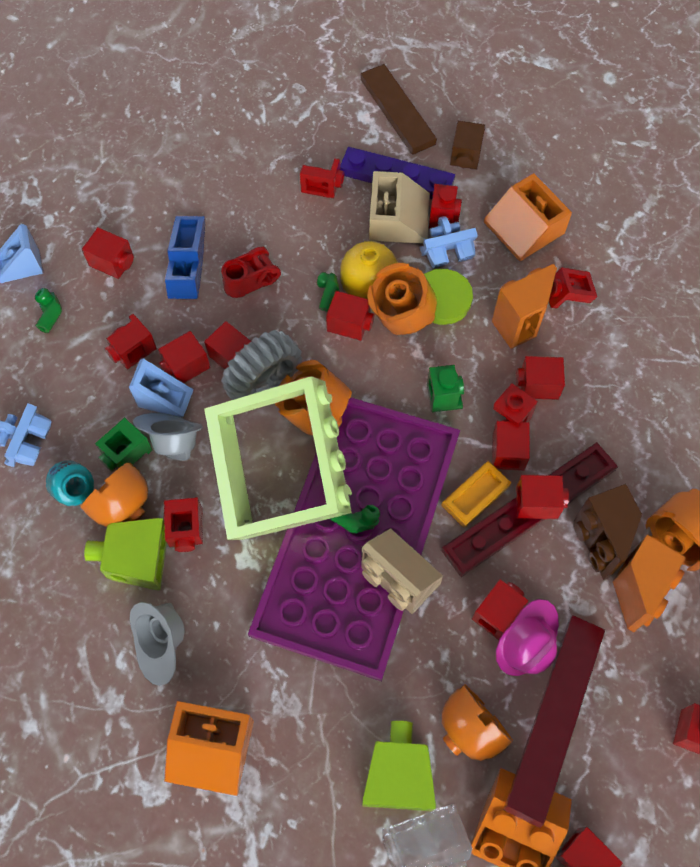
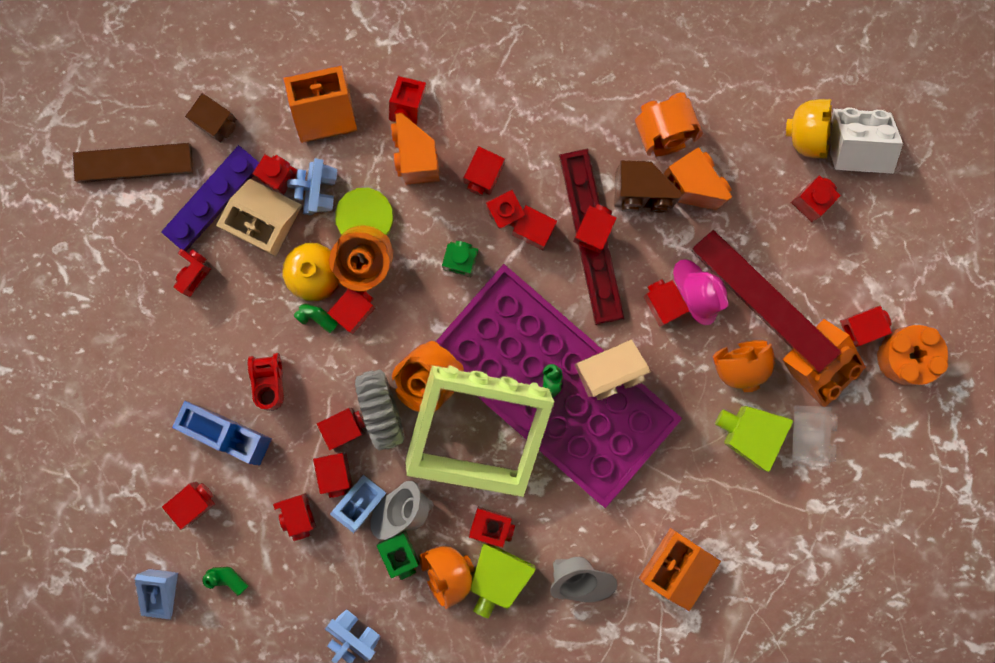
camera: 70 degrees left, 20 degrees up
(71, 492) = (416, 611): teal head -> none
(476, 494) = (561, 275): light orange tile -> none

